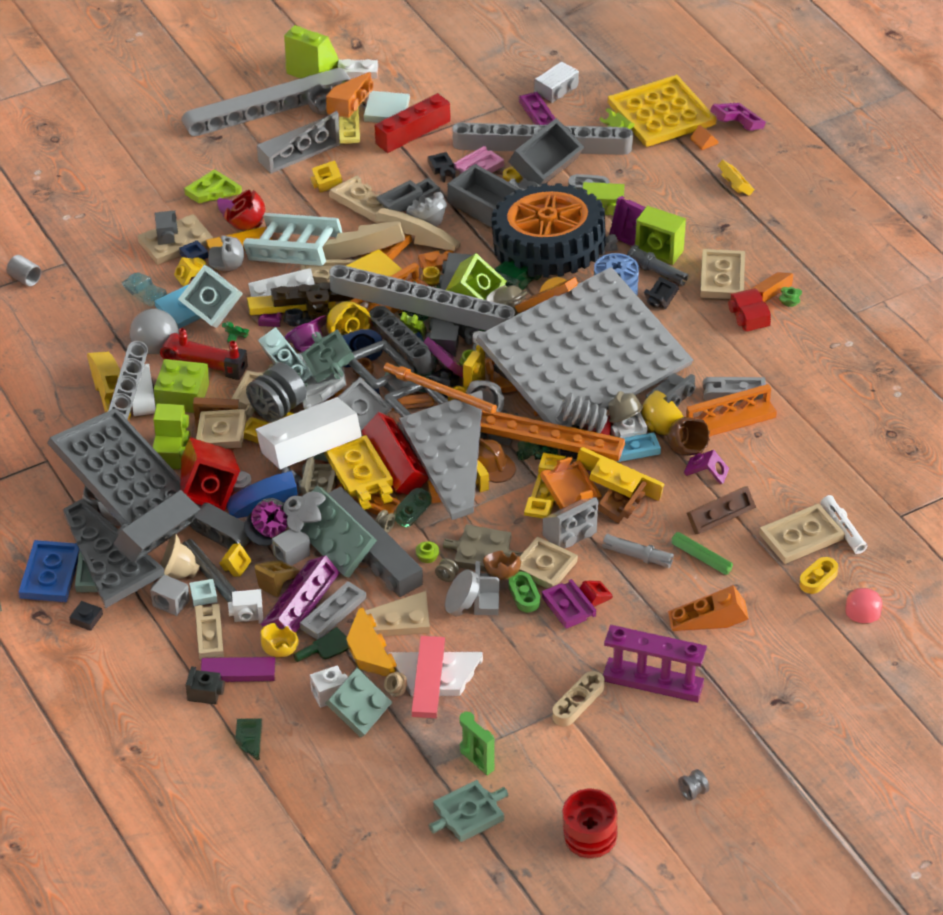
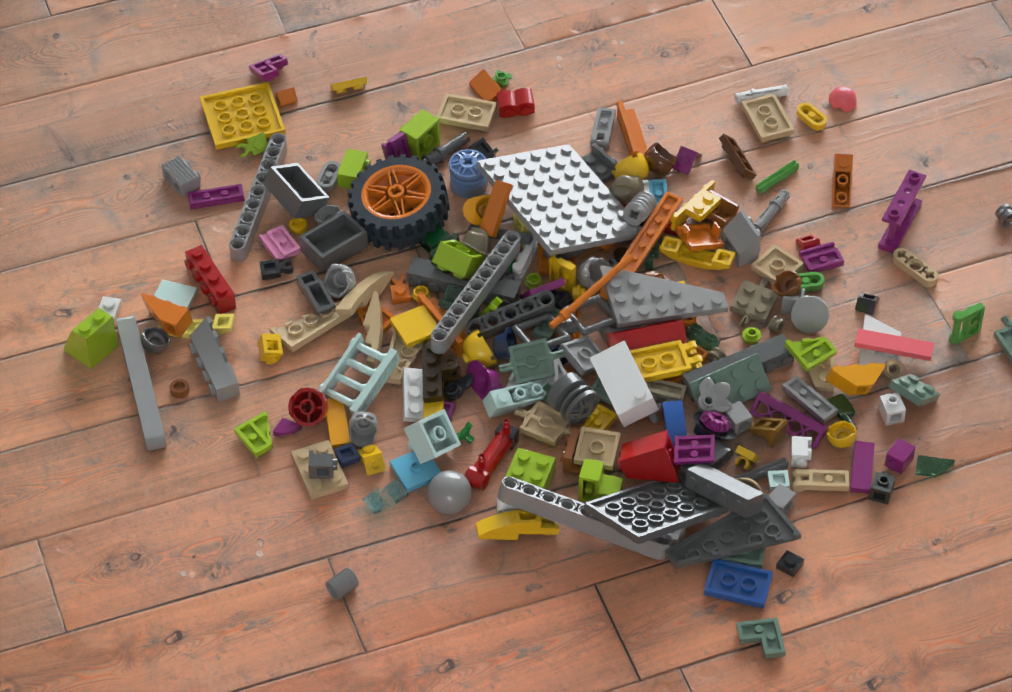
camera: 80 degrees left, 5 degrees up
(221, 504) = (694, 449): none -> magenta slope
(249, 695) = (899, 456): none -> magenta brick
(268, 130) = (179, 388): none -> dark orange tile
(395, 594) = (811, 352): none -> lime wing
(508, 656) = (867, 303): none -> black slope

